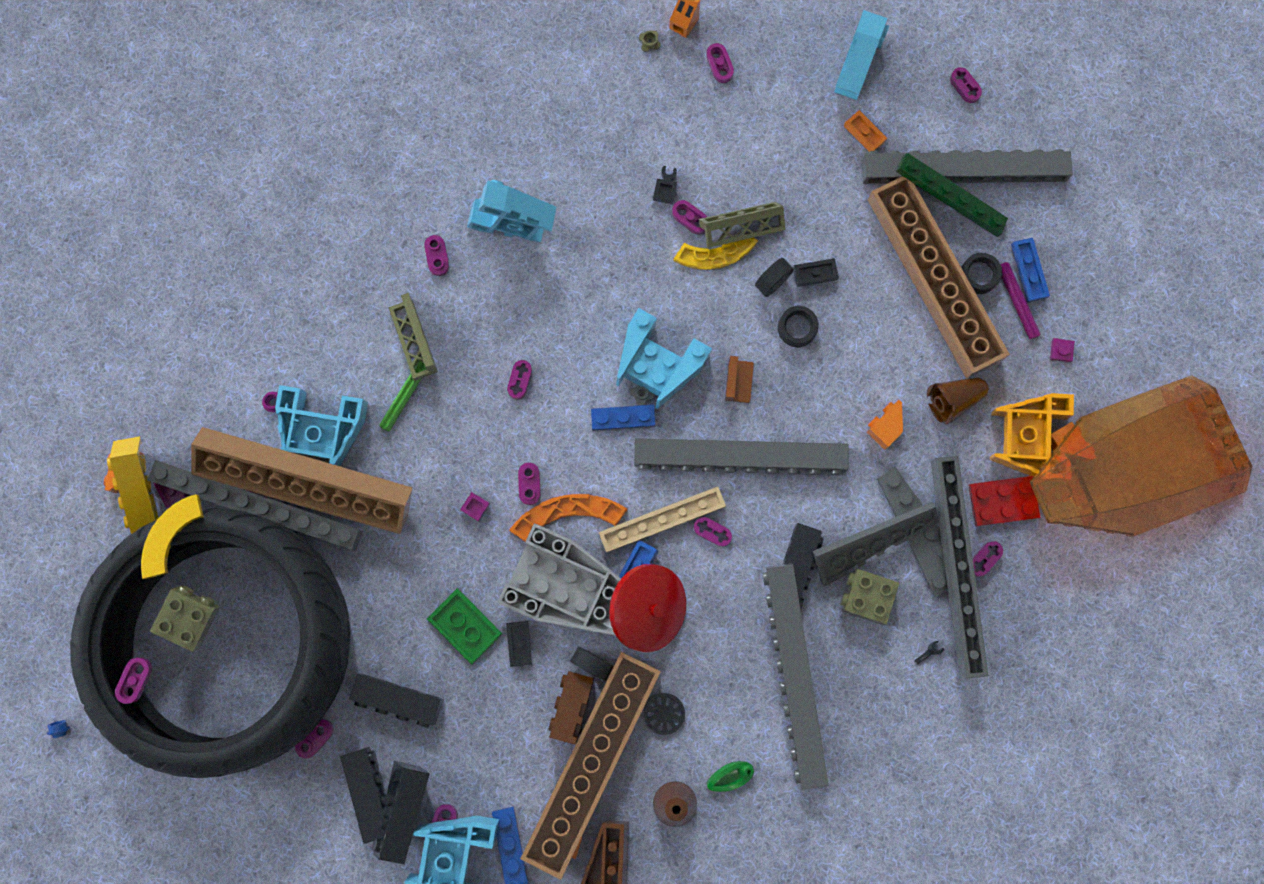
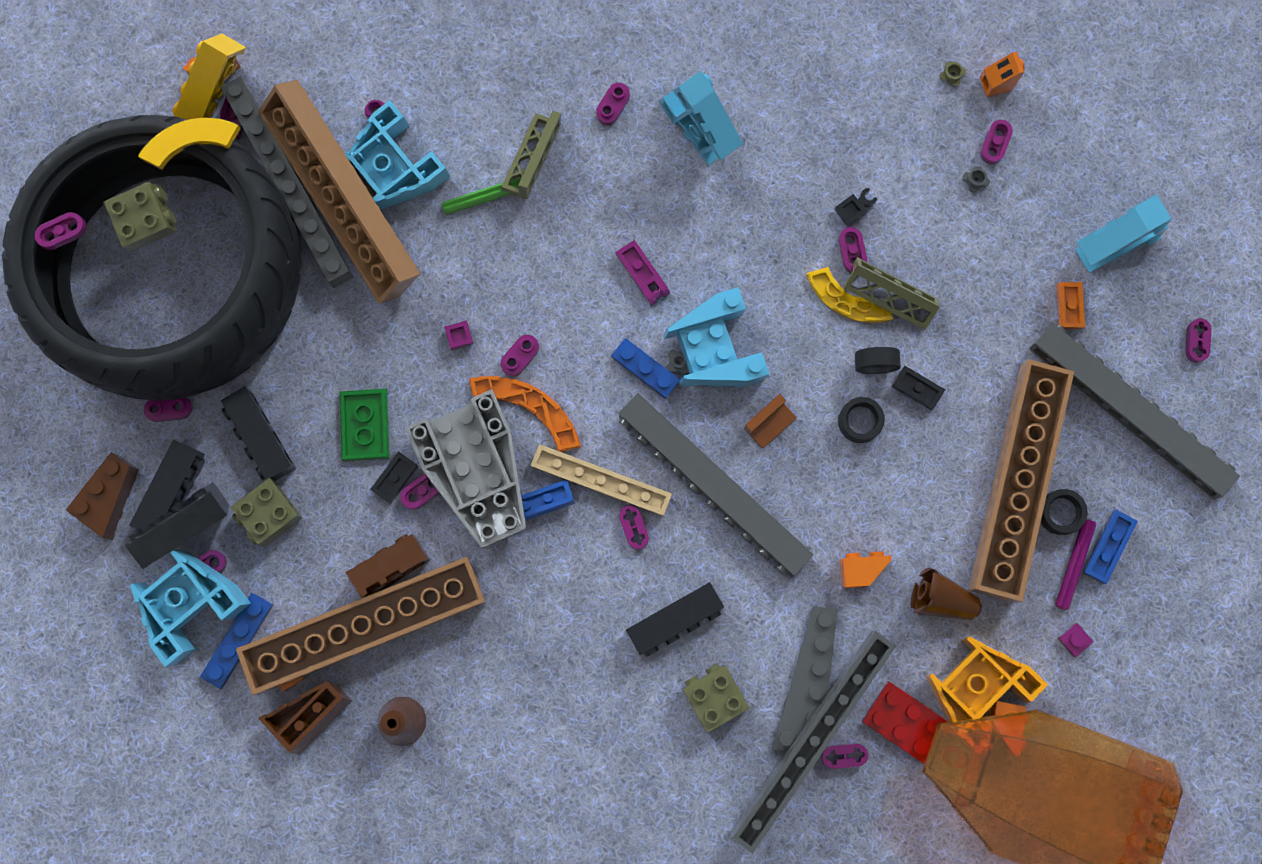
camera: 40 degrees right, 0 degrees up
(325, 839) = (104, 496): none -> reddish brown wedge
(452, 748) = (265, 513): none -> olive brick
(524, 381) = (591, 268): magenta beam -> none
(547, 635) = (423, 491): none -> magenta plate
(562, 354) = (642, 272): none -> magenta plate
(591, 663) = (435, 545): black tyre -> none
(647, 608) = (521, 540): red dish -> none
(664, 714) = (459, 640): black wheel -> none
(729, 93) = (978, 173): none -> dark grey plate
(731, 776) = (466, 740): green arm -> none
(796, 676) = (592, 707): dark grey brick -> none
(846, 553) = (720, 642): dark grey wing -> none
(928, 653) = (723, 790): black hand -> none
(951, 194) = (1097, 422): dark green plate -> none

